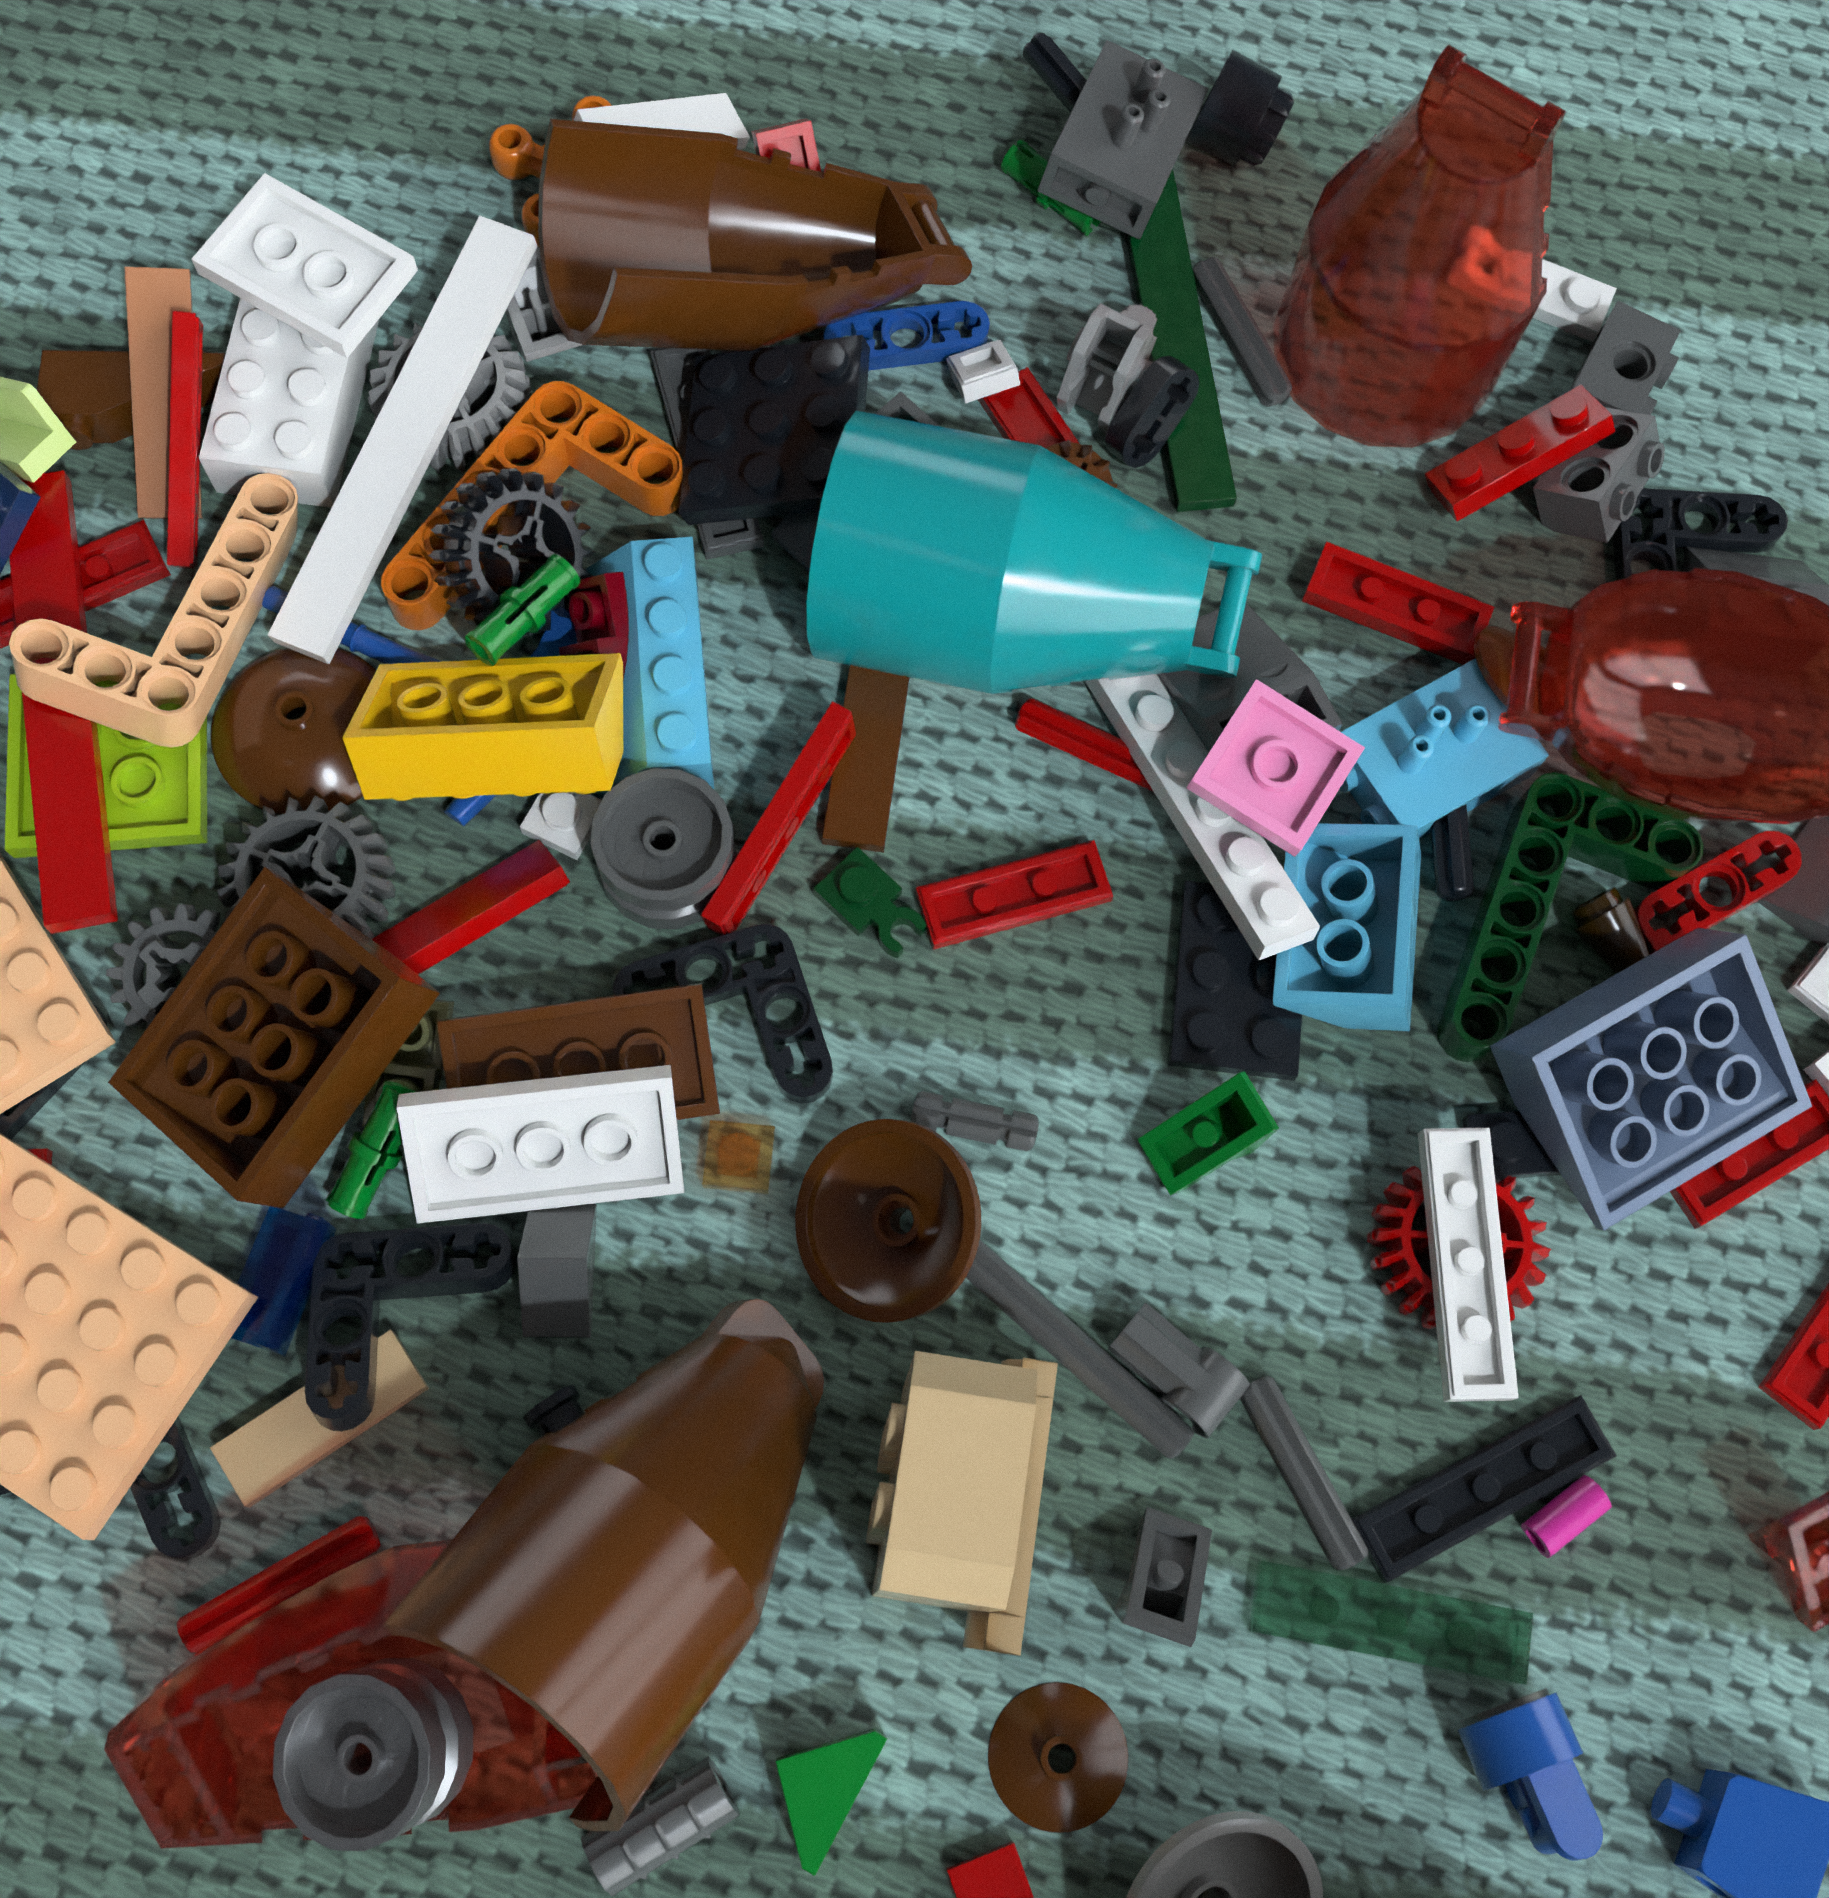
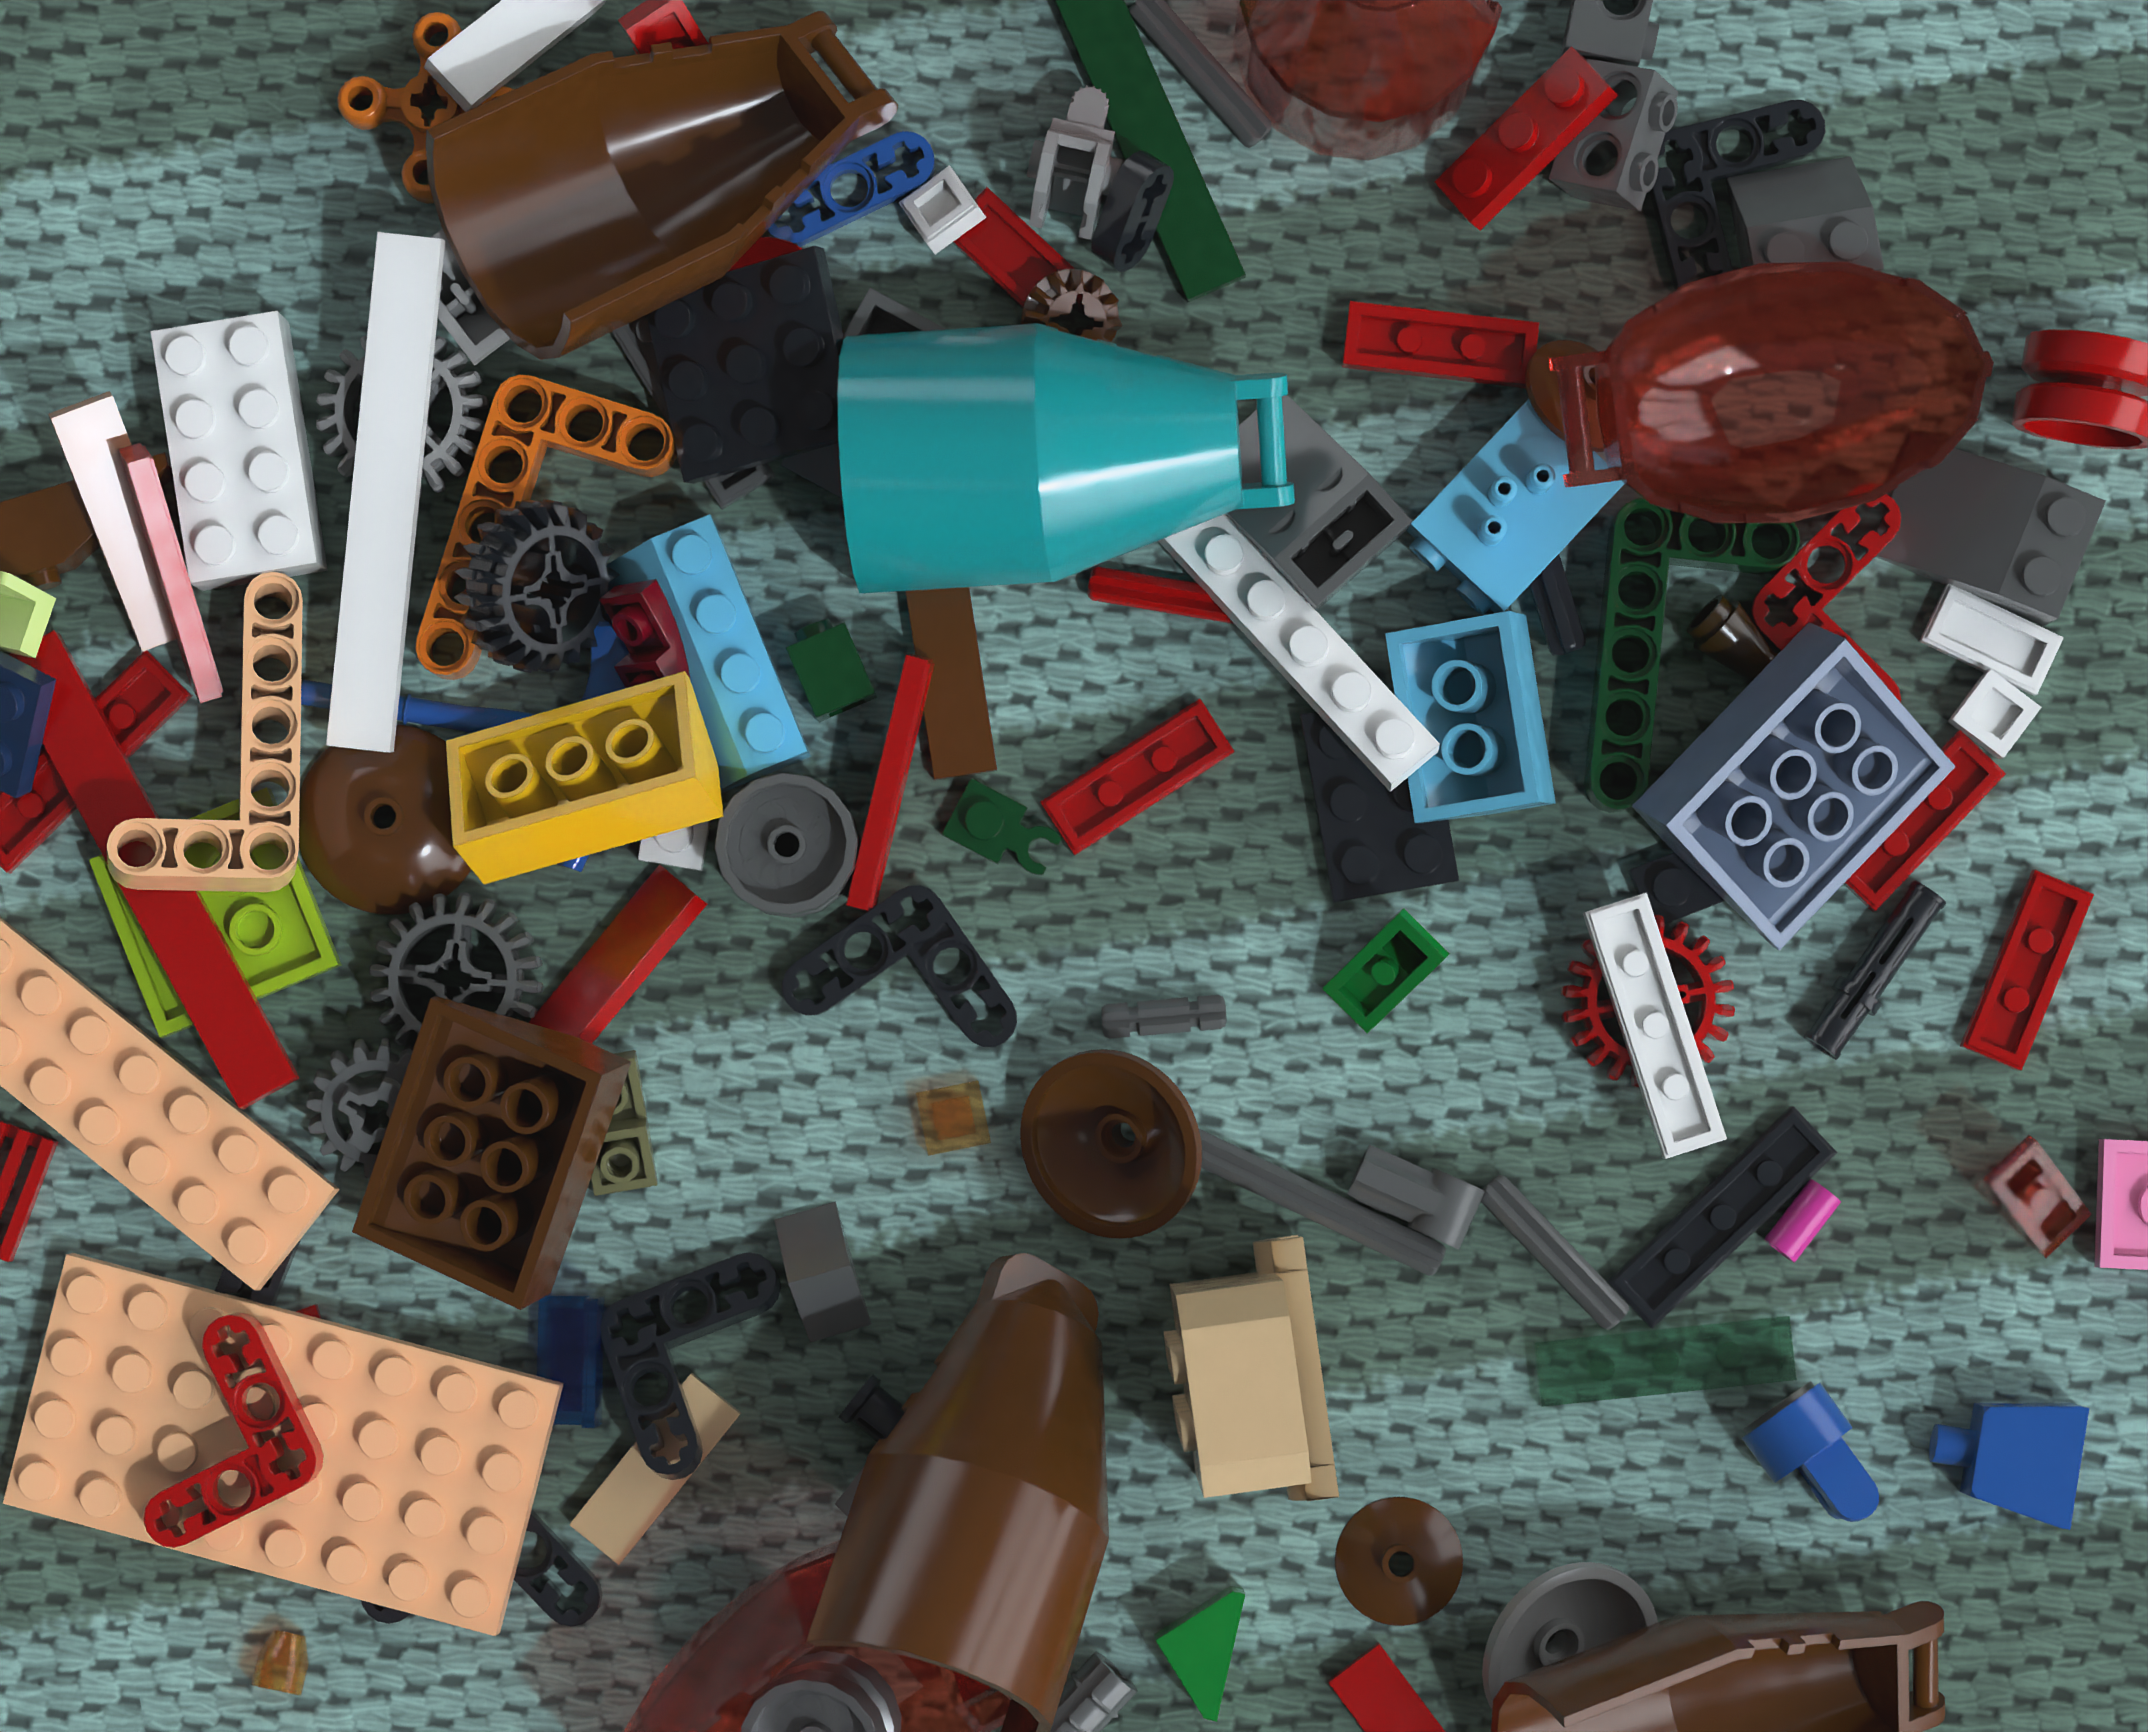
camera: 10 degrees left, 15 degrees up
(305, 265) = (221, 346): white plate -> none
(305, 1566) = (673, 1619): red axle -> none
(371, 1155) = (618, 1218): green pin -> none
(495, 637) = (572, 651): green pin -> none
(541, 1143) = (772, 1168): white plate -> none
(589, 1038) = (779, 1082): reddish brown plate -> none
(758, 712) = (830, 669): none -> dark green brick
(1166, 1577) = (1451, 1385): dark grey slope -> none
(1275, 768) = (1356, 597): bright pink plate -> none
(1638, 1330) = (1830, 1031): none -> black pin

